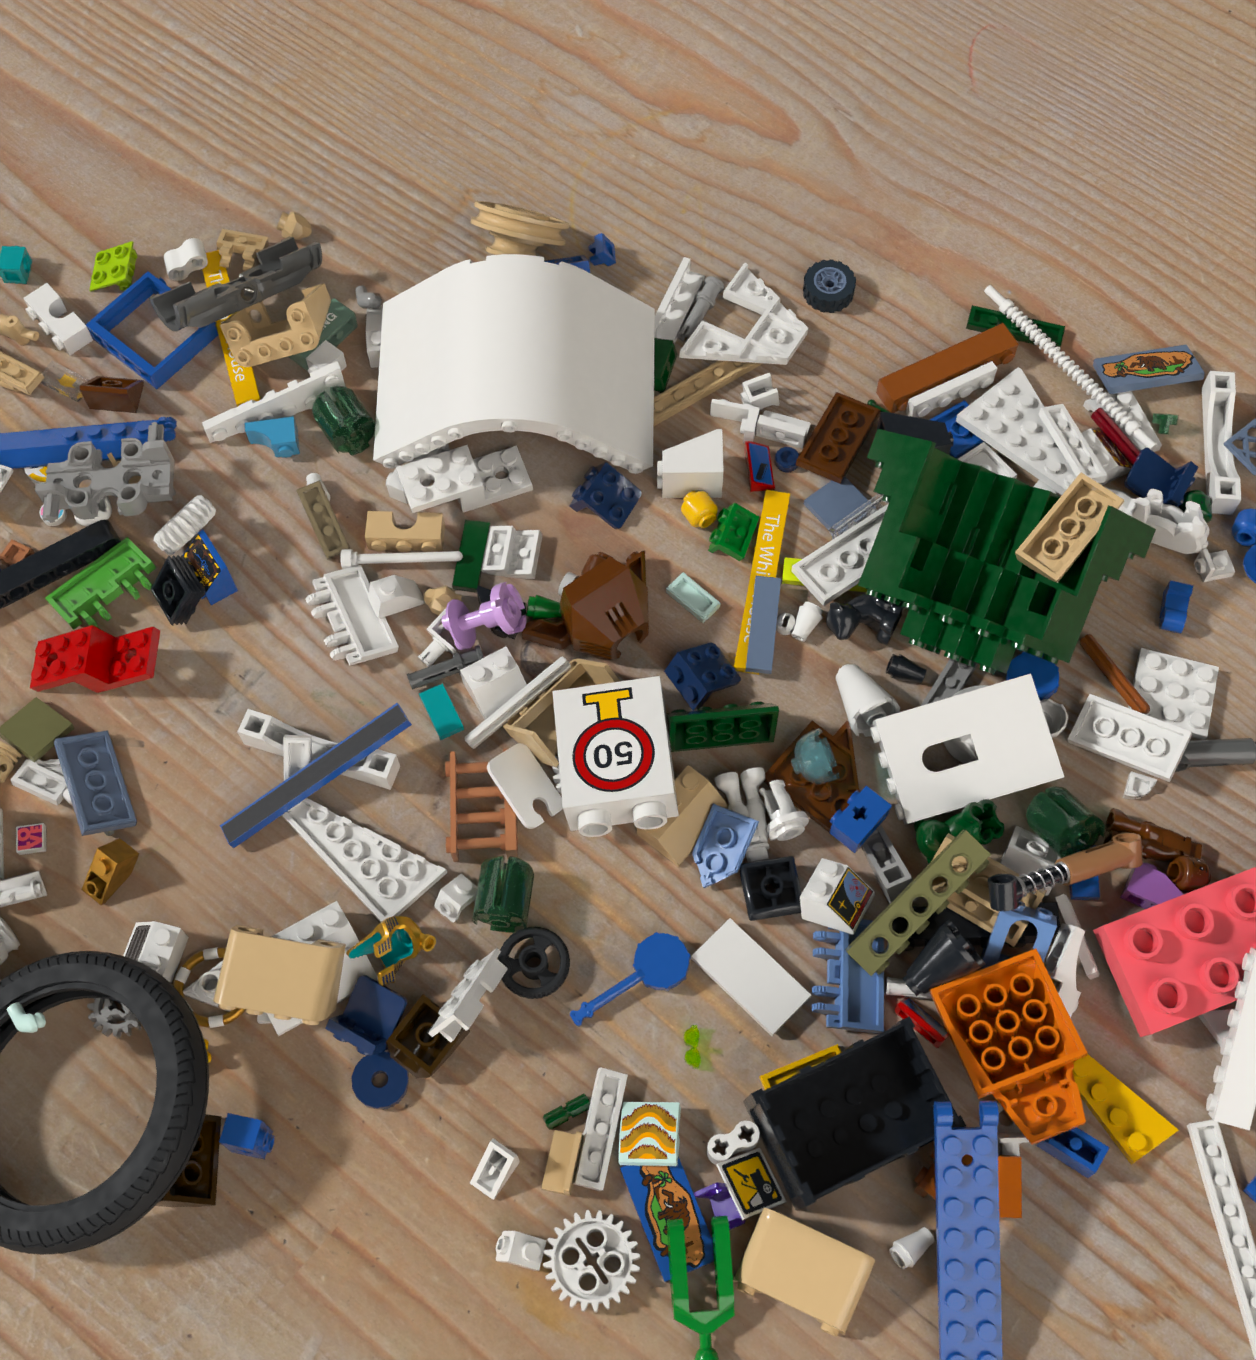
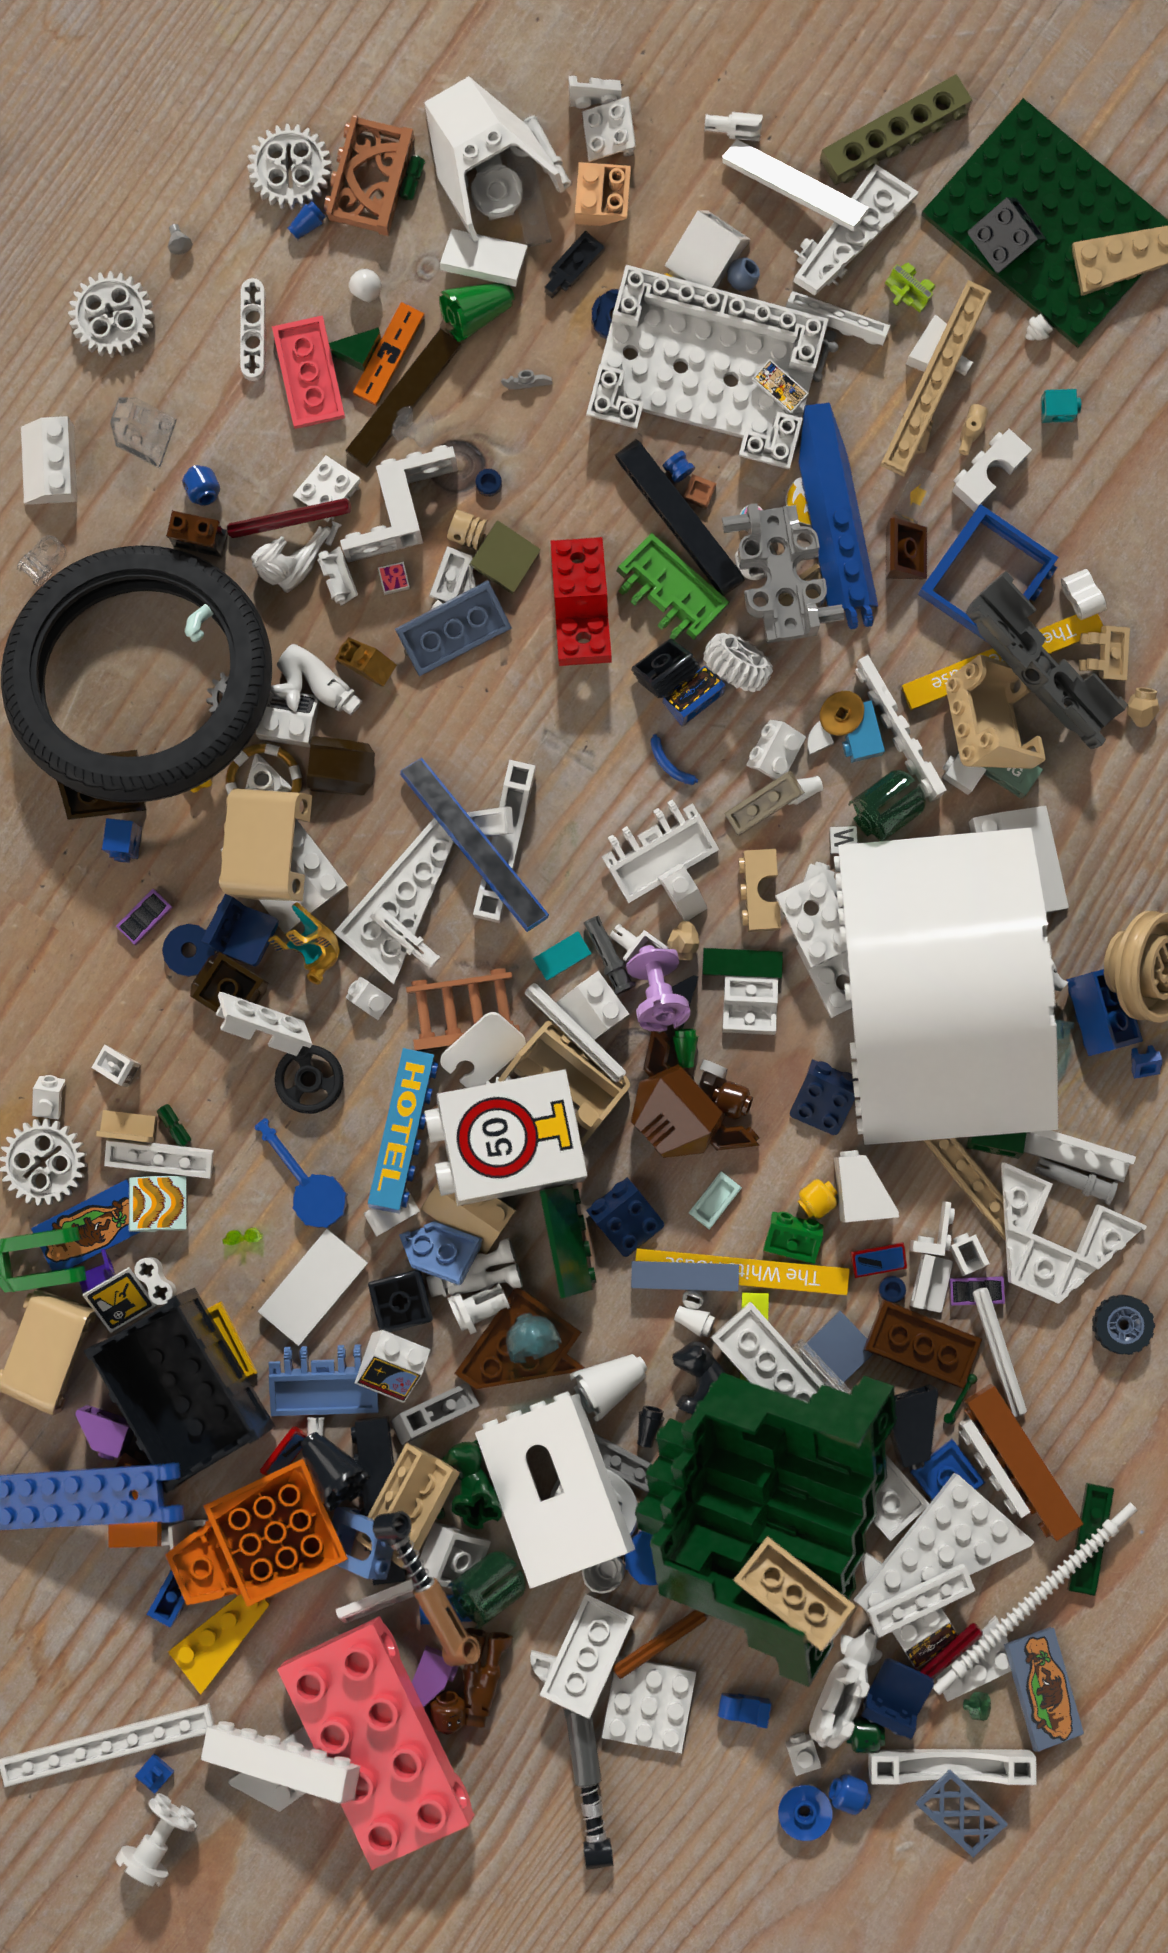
camera: 85 degrees right, 20 degrees up
(114, 267) = (1068, 515): lime hinge -> none
(129, 910) = (322, 681): none -> white piece
(213, 905) = (340, 766): none -> dark brown slope
(244, 444) = (835, 707): none -> pearl gold piece
(271, 475) = (818, 739): none -> white tile
(271, 605) = (667, 766): none -> blue piece
(274, 510) = (776, 749): none -> white bracket
(336, 1126) = (144, 917): none -> tile
(350, 558) = (724, 839): white piece -> none
(366, 466) = (842, 836): none -> white tile
(367, 299) = (1051, 803): light grey arm -> none
(408, 843) = (429, 958): none -> white pin
(503, 893) = (370, 1031): clear green cylinder -> none
(600, 869) = (401, 1131): none -> dark azure brick
(679, 891) = (383, 1220): none -> white axle
(792, 393) = (962, 1289): none -> tile
(843, 378) = (999, 1351): none -> white axle
(855, 832) = (482, 1398): blue brick -> none
(896, 1203) = (105, 1431): none -> medium lavender slope
(911, 1247) = (76, 1448): white cone -> none
(962, 845) = (434, 1484): olive brick -> none
(1062, 964) = (338, 1584): white slope -> none

